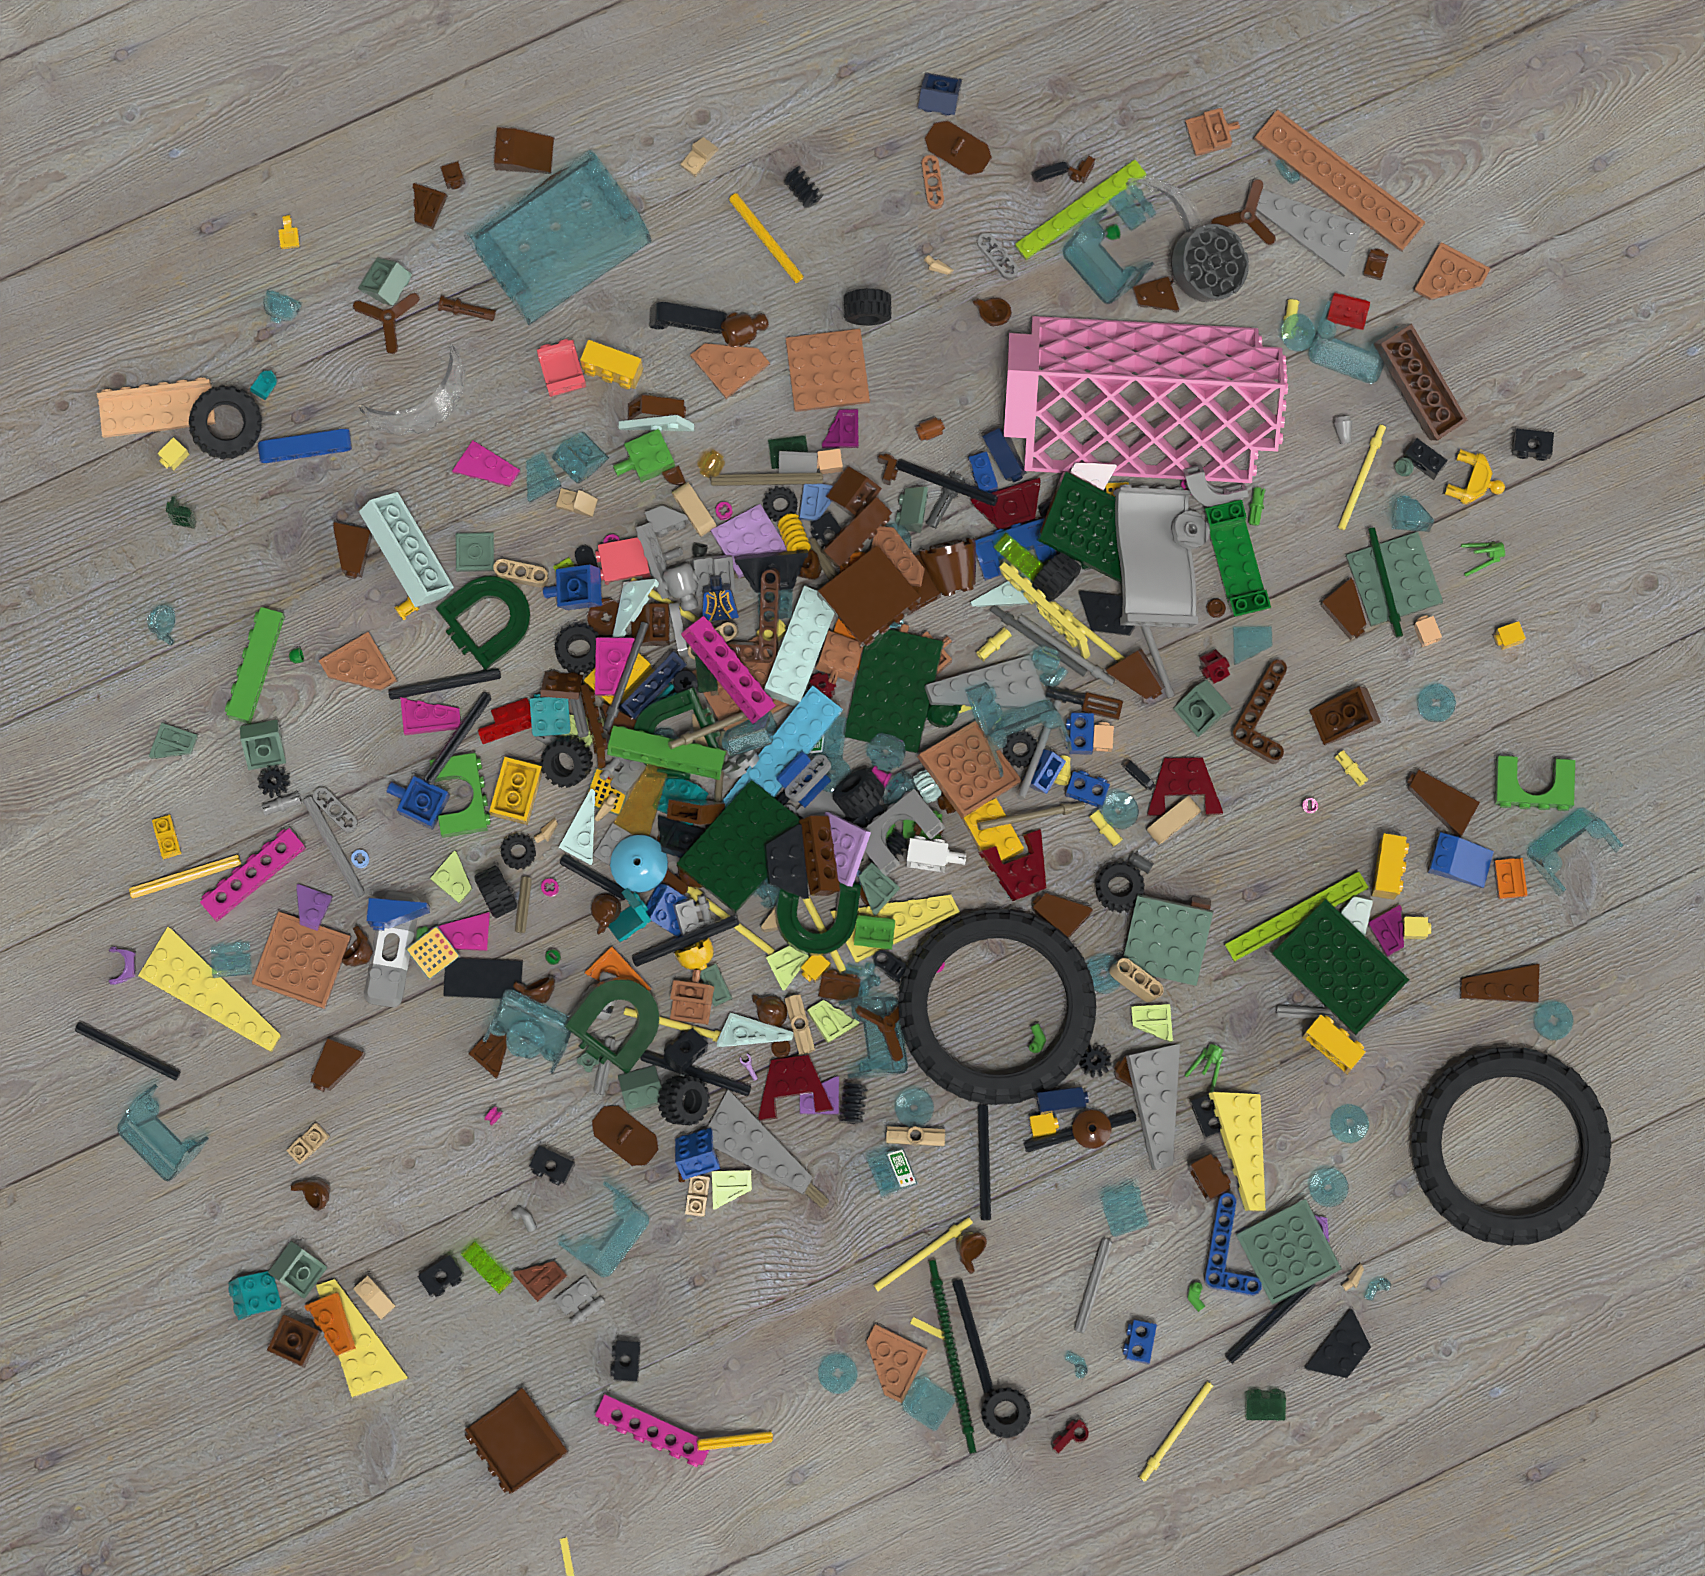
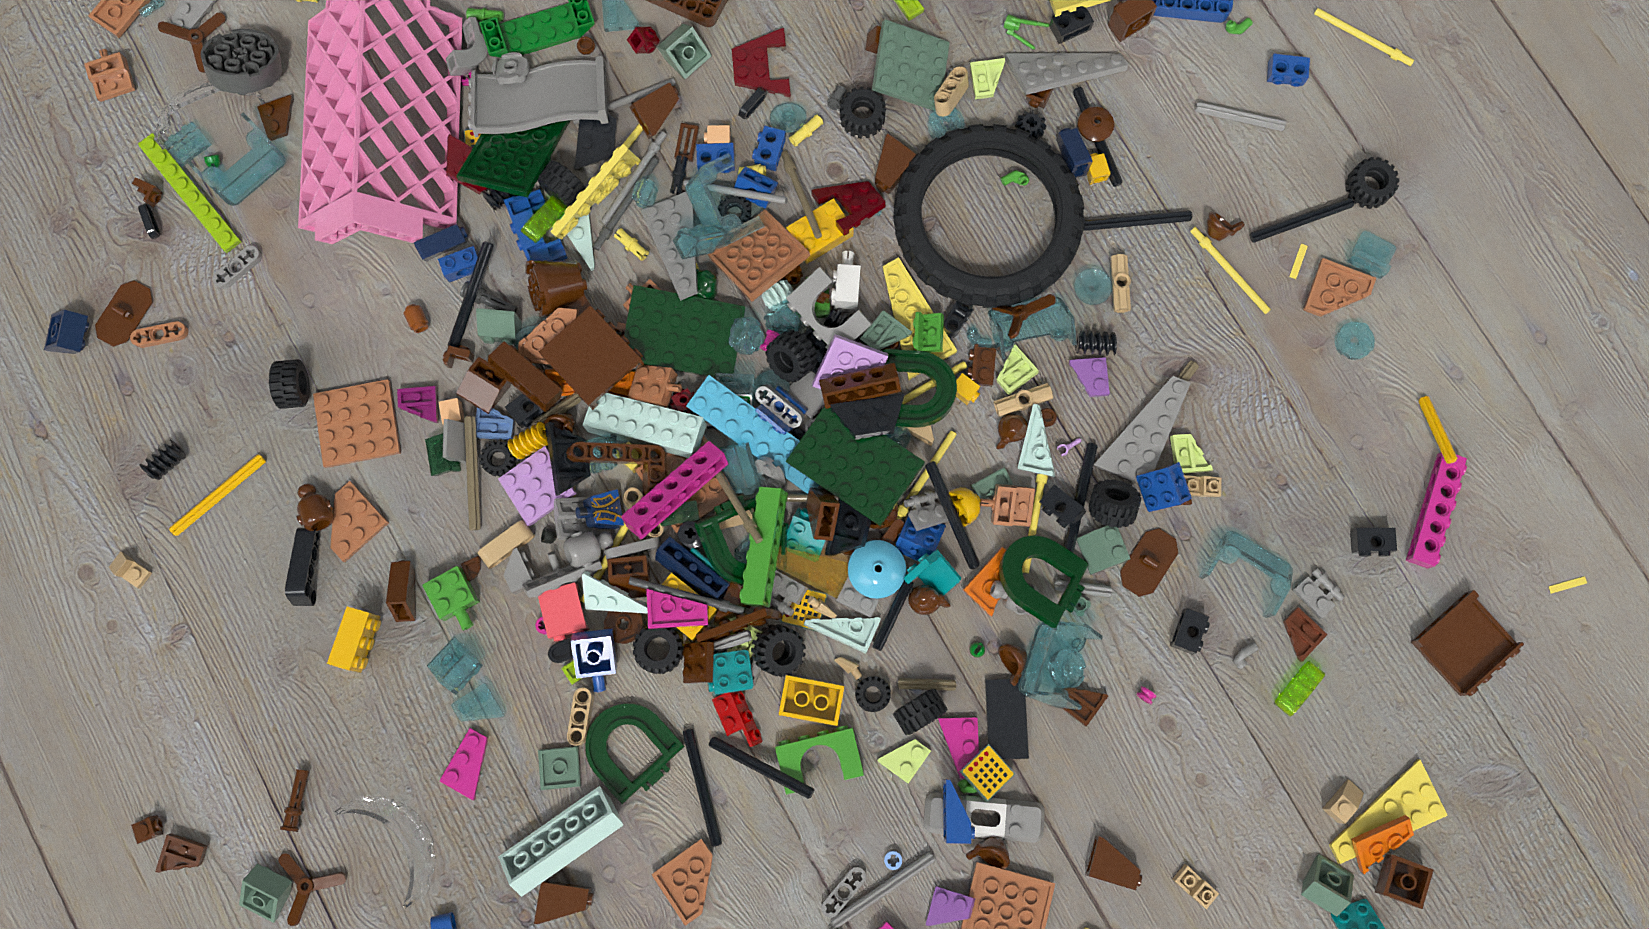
camera: 95 degrees left, 0 degrees up
(315, 1192) = (1246, 873): reddish brown hat -> none
(406, 608) = (624, 836): yellow bush -> none
(420, 801) = (830, 801): blue brick -> none
(427, 718) = (739, 801): dark pink wing -> none
(429, 1277) = (1304, 730): black brick -> none
(523, 151) = (120, 755): reddish brown slope -> none
(549, 881) = (900, 659): dark pink bush -> none
(561, 367) = (358, 694): coral panel -> none
(563, 259) = (238, 701): clear light blue slope -> none
(577, 502) = (503, 665): tan slope -> none
(663, 423) = (416, 579): light aqua wing -> none
(711, 463) = (457, 530): clear yellow head -> none
(727, 515) = (510, 520): dark pink bush -> none
(786, 965) = (965, 418): yellowish green wing -> none
(792, 1078) = (1076, 401): dark red wing -> none
(859, 971) = (965, 346): clear light blue arm -> none
(892, 1172) = (1159, 302): clear light blue slope -> none
(938, 266) = (247, 323): tan bar -> none
(967, 1429) = (1258, 255): dark green hose -> none
(994, 311) = (293, 263): reddish brown hat -> none
(1013, 506) = (495, 230): dark red wing -> none
(1053, 679) = (663, 187): clear light blue arm -> none
(1061, 1442) = (1384, 127): dark red plate -> none
(1080, 1364) = (1313, 123): clear light blue arm -> none
(1124, 1211) = (1168, 91): clear light blue bracket -> none
(1173, 820) = (793, 70): tan beam -> none

